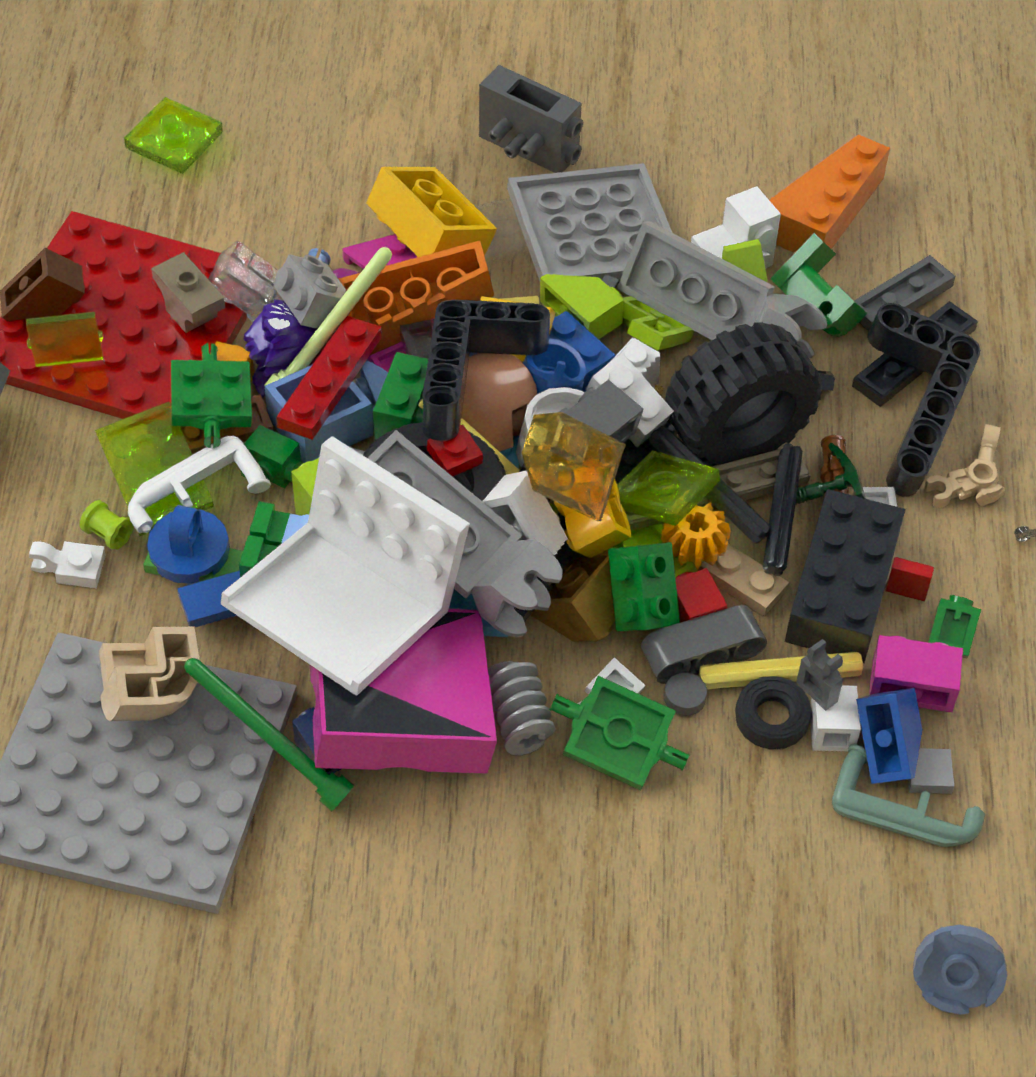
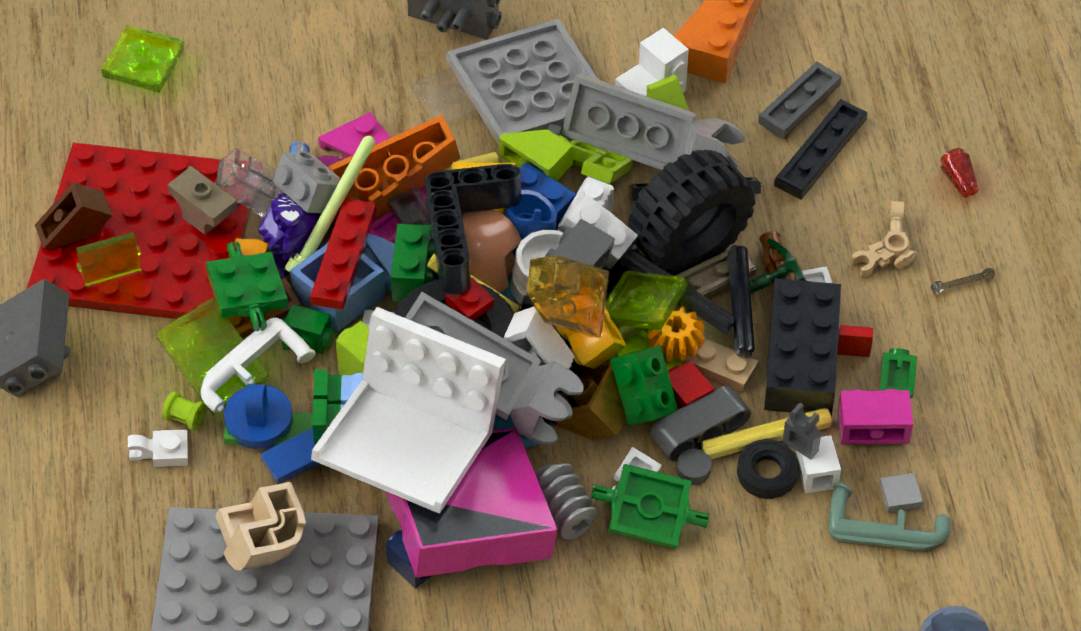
camera: 10 degrees left, 0 degrees up
(330, 787) = (427, 591): green piece -> none
(427, 210) = (387, 94): yellow brick -> none
(802, 279) = (714, 102): green piece -> none
(891, 734) = (865, 469): blue slope -> none
(950, 361) = (853, 152): black beam -> none

